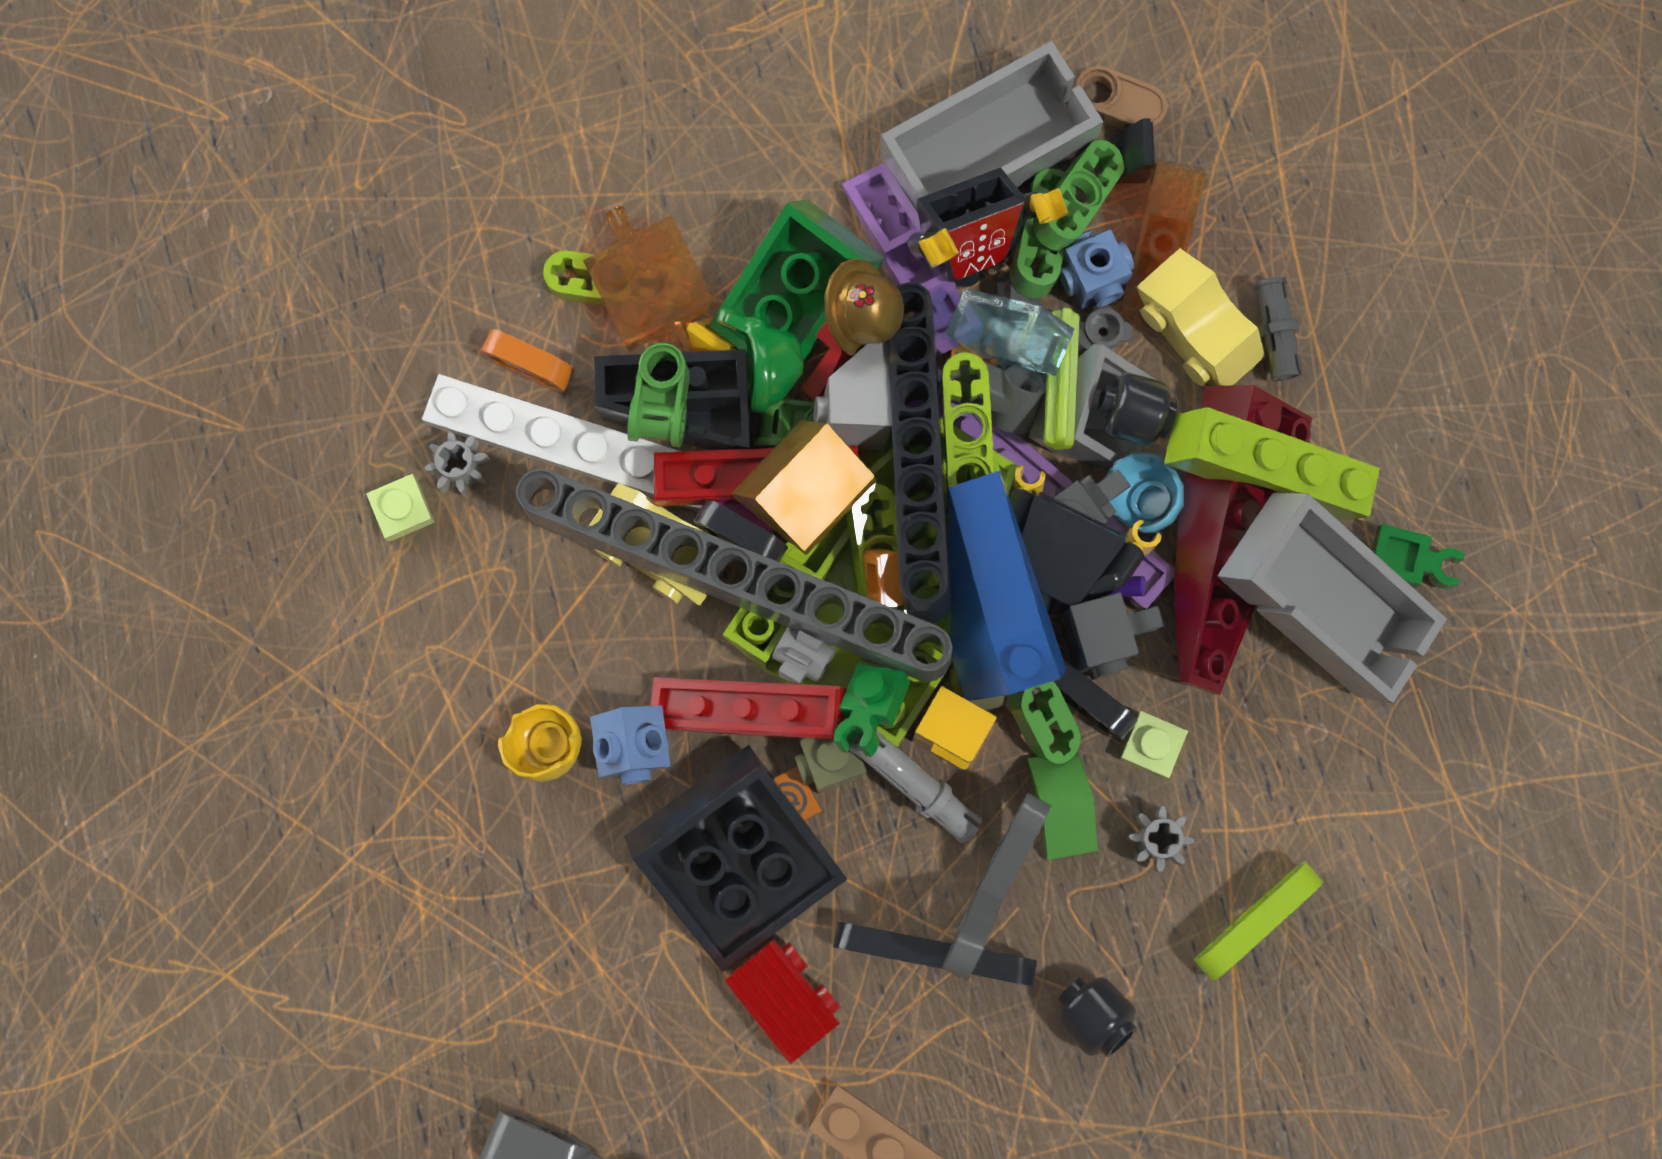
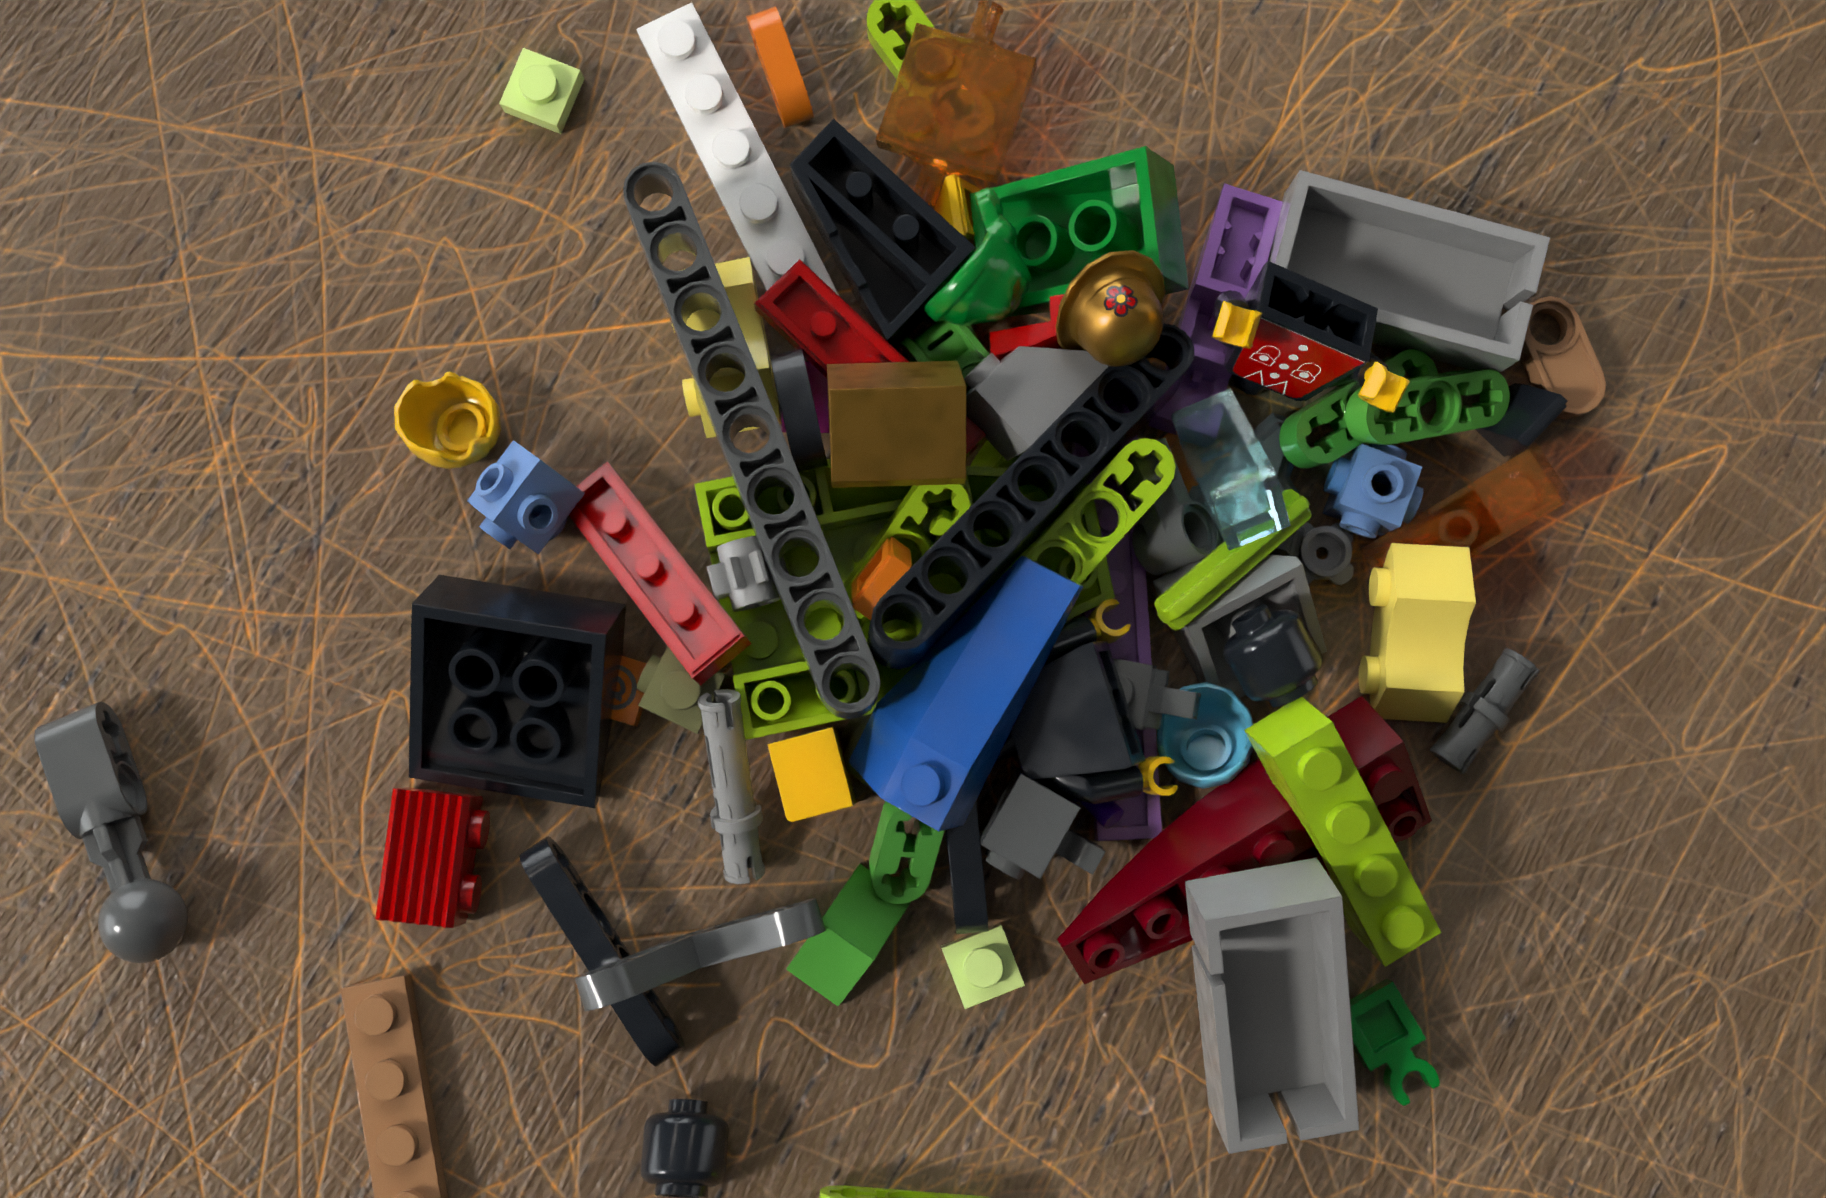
camera: 40 degrees right, 5 degrees up
(459, 451) = (618, 83): light grey gear -> none
(659, 407) = (846, 216): bright green piece -> none
(870, 701) = (757, 676): green plate -> none
(1169, 828) = (898, 1073): light grey gear -> none

